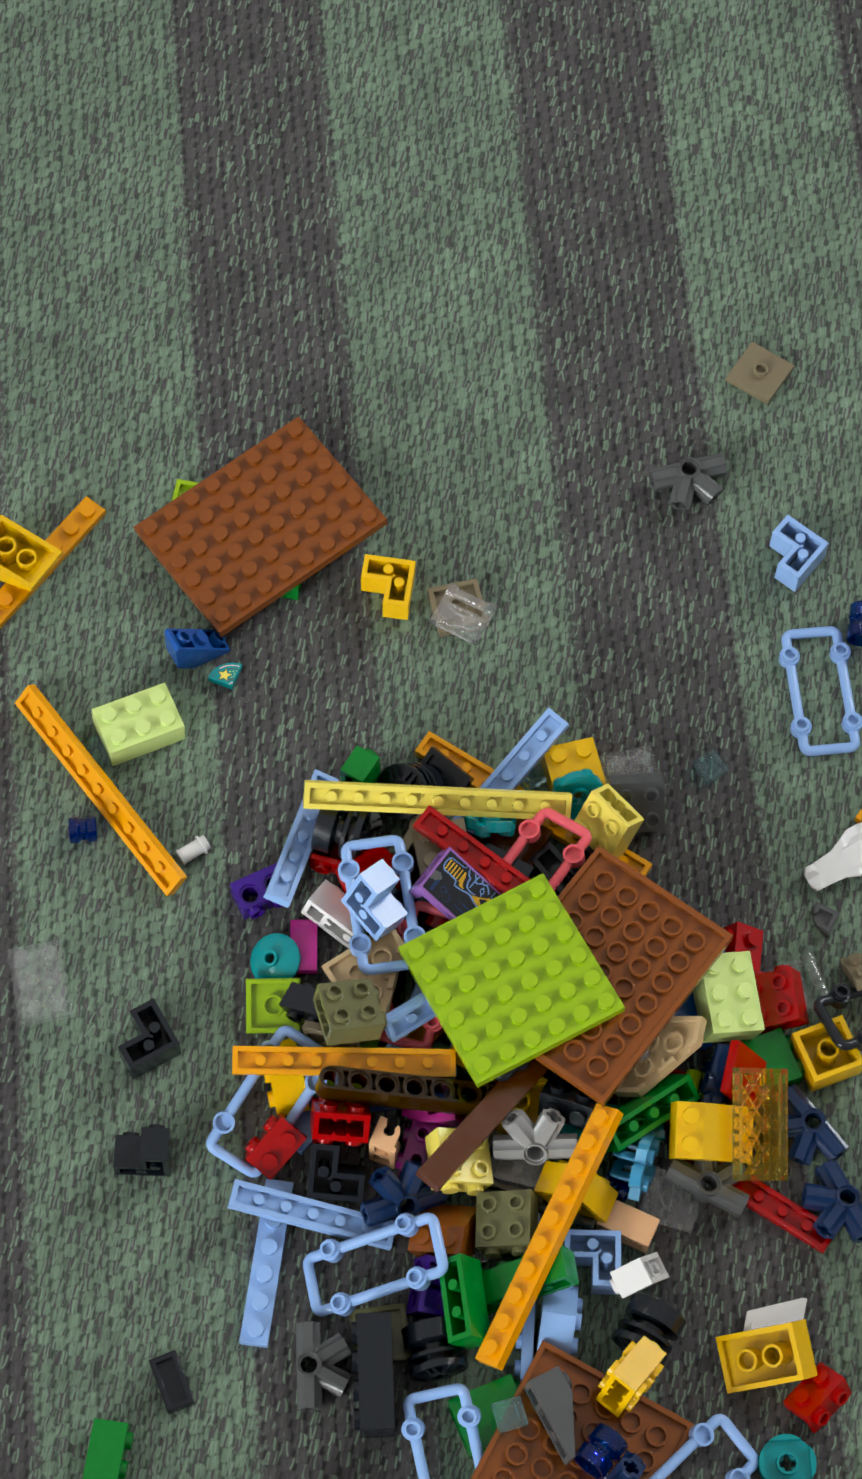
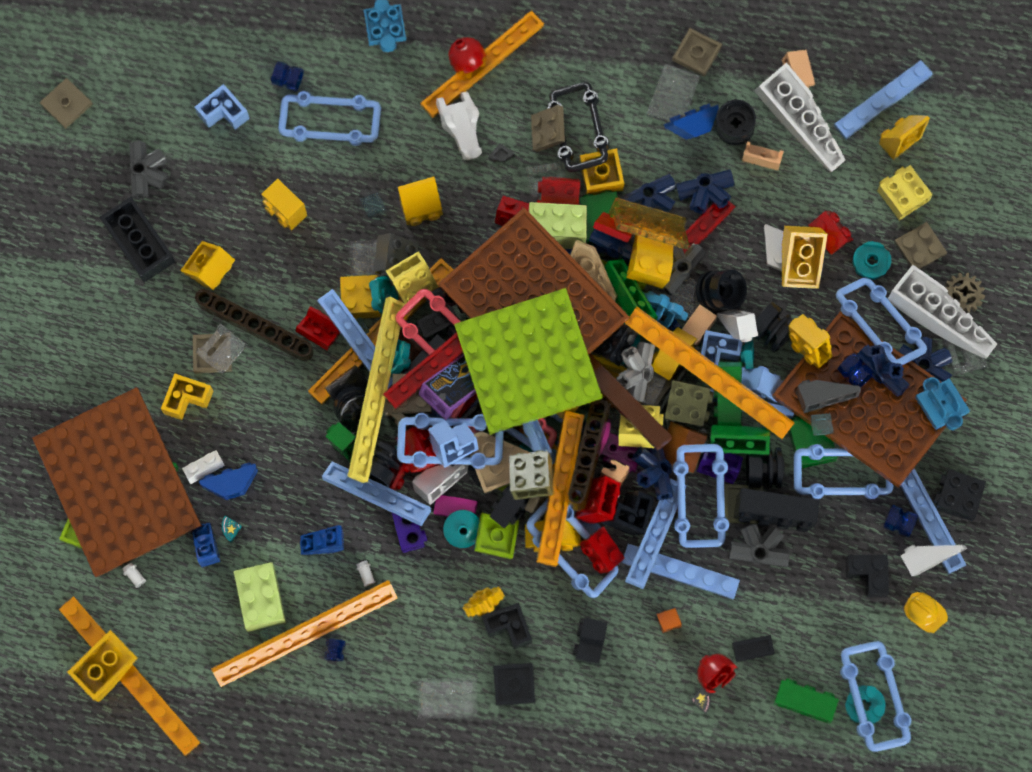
camera: 75 degrees left, 10 degrees up
(71, 1064) = (514, 684): none -> black plate
(87, 1322) = (702, 700): none -> dark grey tile
(127, 1328) = (714, 671): none -> red cylinder
(144, 573) = (134, 575): none -> white pin
(175, 1000) = (483, 601): none -> yellow gear
(193, 1257) = (669, 620): none -> orange slope
(225, 787) = (323, 541): none -> blue slope
(287, 663) = (231, 482): none -> blue slope
(301, 626) = (203, 466): none -> white plate
(506, 660) = (248, 318): none -> dark brown beam
(514, 725) = (318, 328): none -> red bracket
(576, 579) = (208, 265): none -> yellow slope
(590, 487) = (137, 239): none -> black brick
(599, 1300) = (748, 354): none -> teal plate
(678, 650) = (284, 205): none -> yellow brick
(682, 1257) = (721, 290): none -> black wheel
(723, 818) = (420, 201): none -> yellow slope

